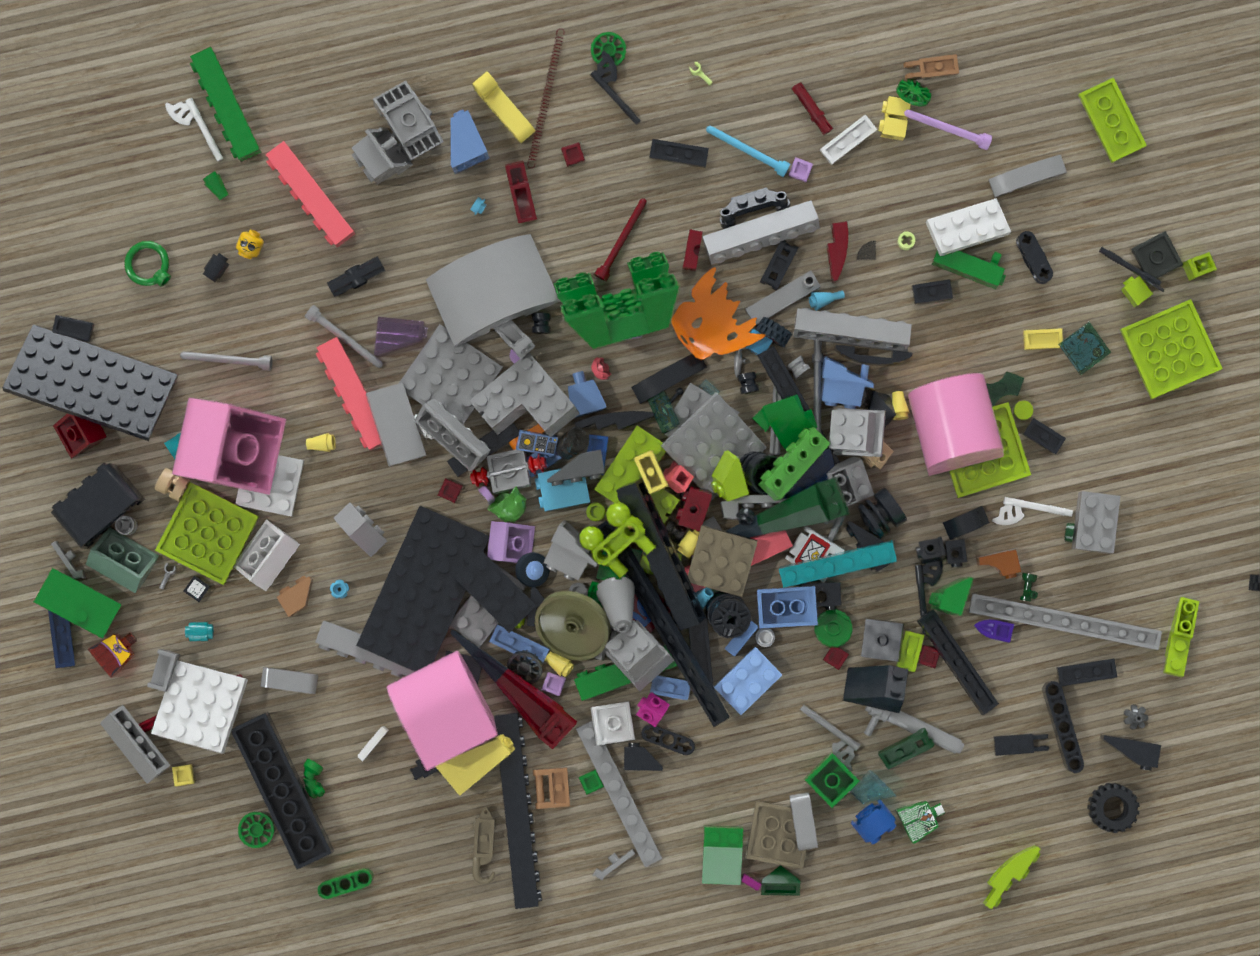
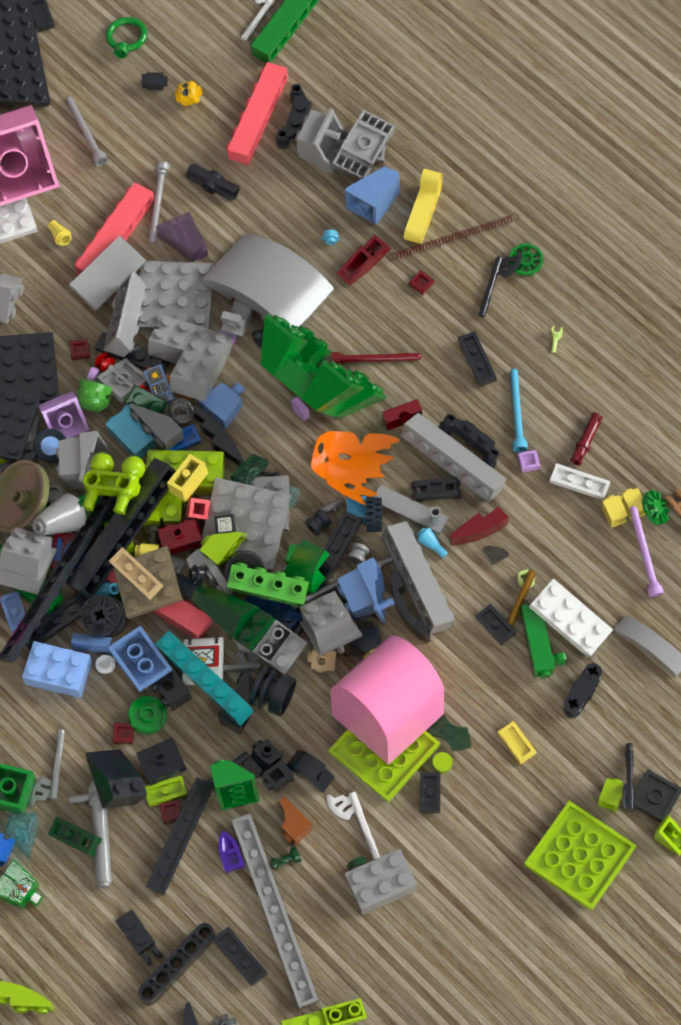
camera: 65 degrees right, 20 degrees down
(216, 185) = (221, 44): green cone -> none
(338, 161) = (299, 109): none -> black plate
(548, 464) = (145, 399): none -> dark green plate
(600, 369) = (255, 401): coral plate -> none
(668, 377) = (283, 458): black slope -> none
(708, 464) = (225, 523): none -> tile
(713, 567) = (136, 573): none -> tan plate
(922, 255) = (521, 597): none -> pearl gold piece
(1084, 348) = (531, 781): tile -> none

